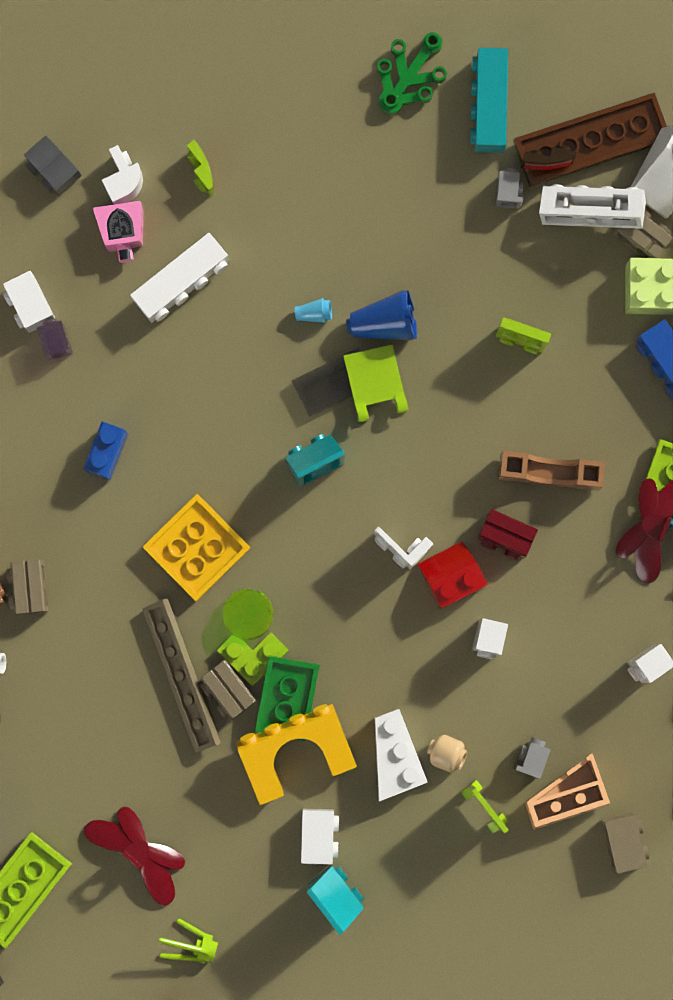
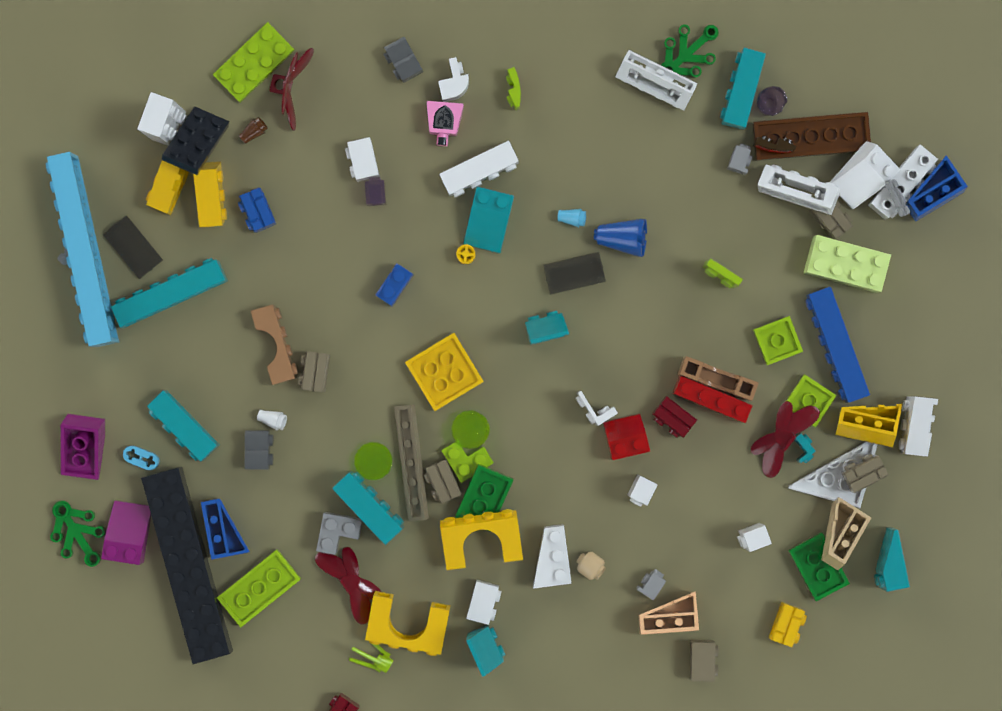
camera: 15 degrees right, 5 degrees up
(99, 784) = (333, 527): none -> light grey brick
(131, 685) = (373, 461): none -> clear neon green tile
(138, 747) = (369, 507): none -> teal brick
(187, 386) = (465, 251): none -> yellow wheel
(194, 907) = (382, 631): none -> yellow arch
(208, 339) = (488, 219): none -> teal slope
(374, 379) = (604, 279): lime flag -> none
(378, 115) = (656, 80): none -> white brick
(498, 821) = (614, 624): lime flag -> none
(530, 106) = (771, 100): none -> clear purple hair
(551, 499) = (712, 399): none -> red brick
(615, 404) = (778, 340): none -> lime plate

